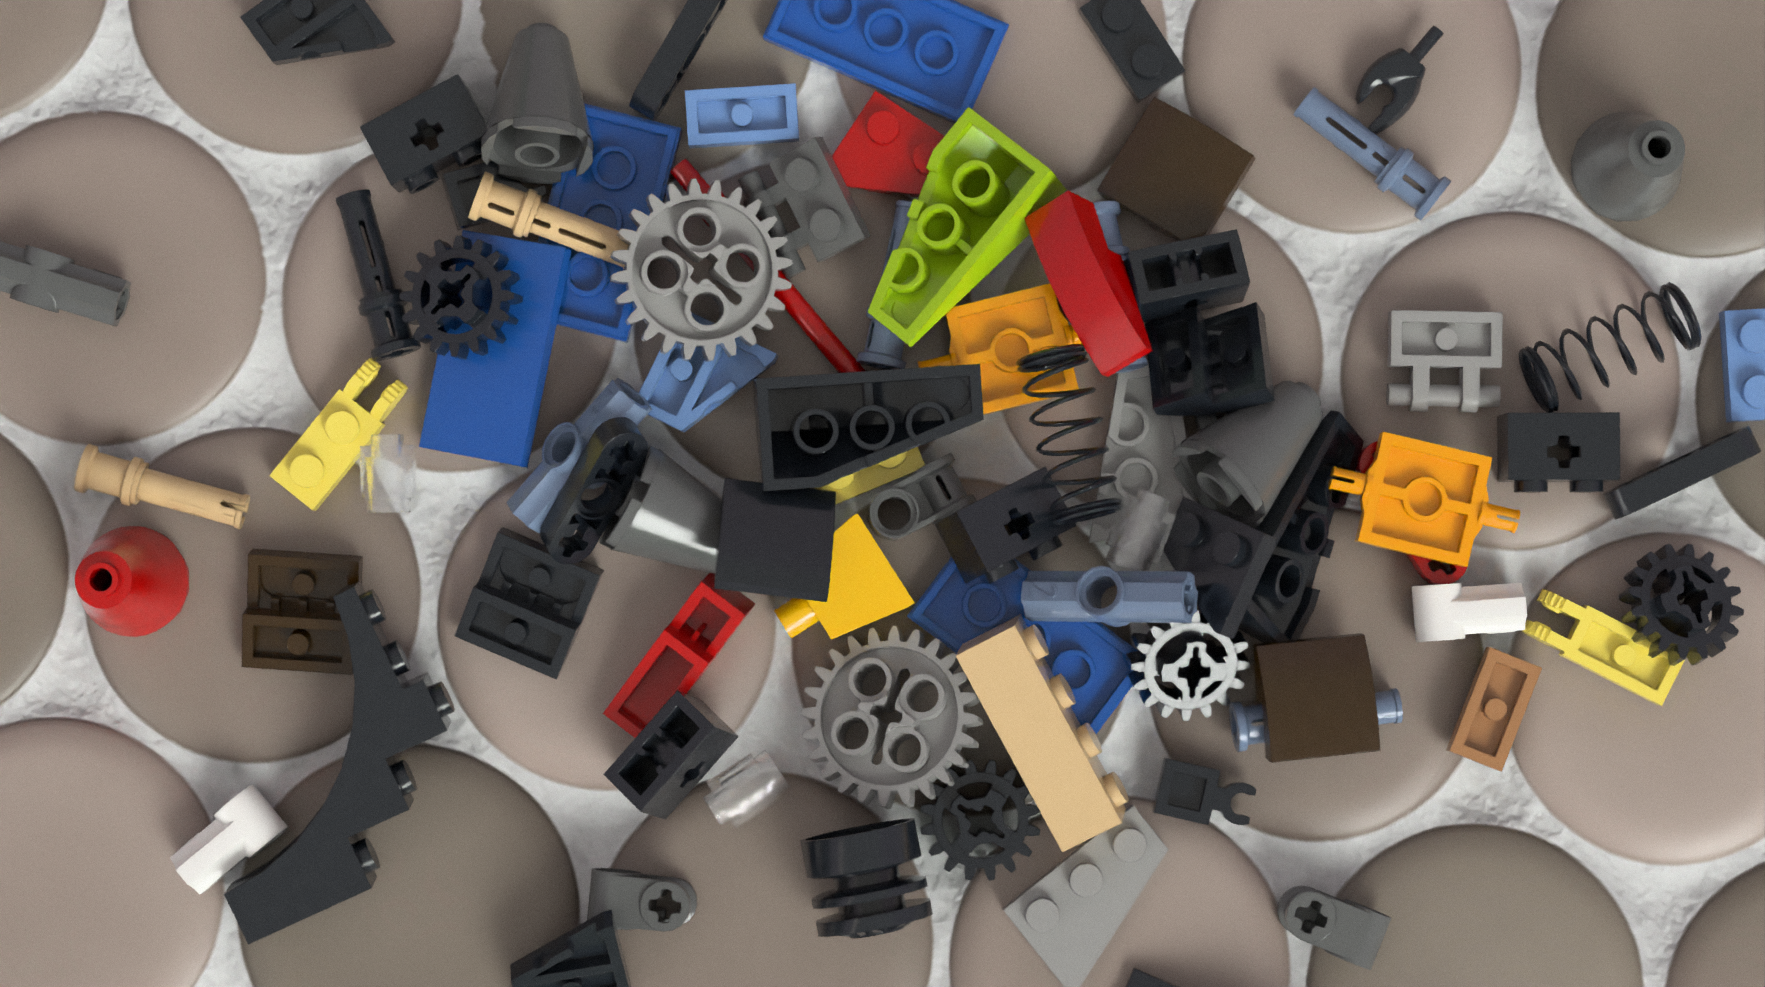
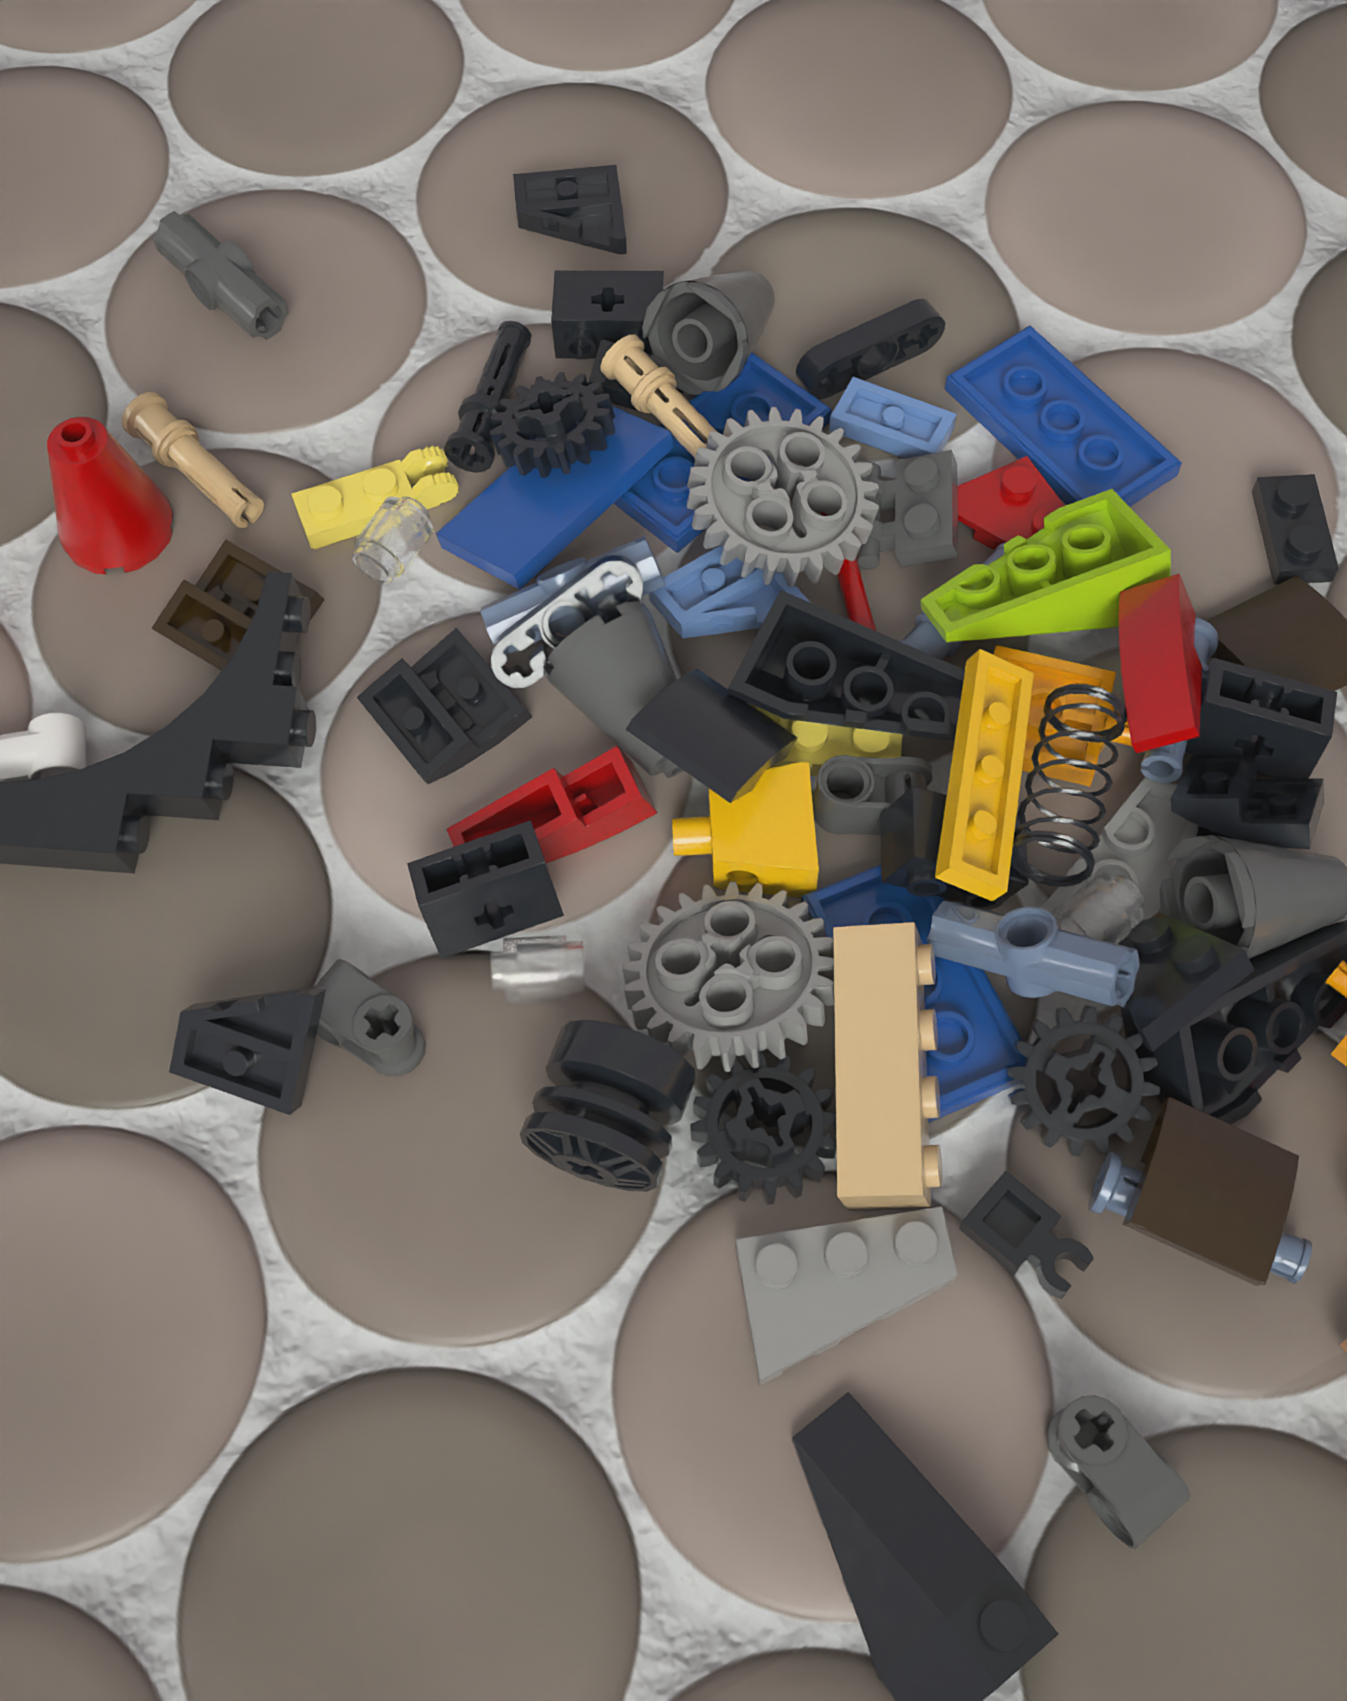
camera: 35 degrees right, 25 degrees down
(1005, 467) = (985, 776): none -> yellow plate

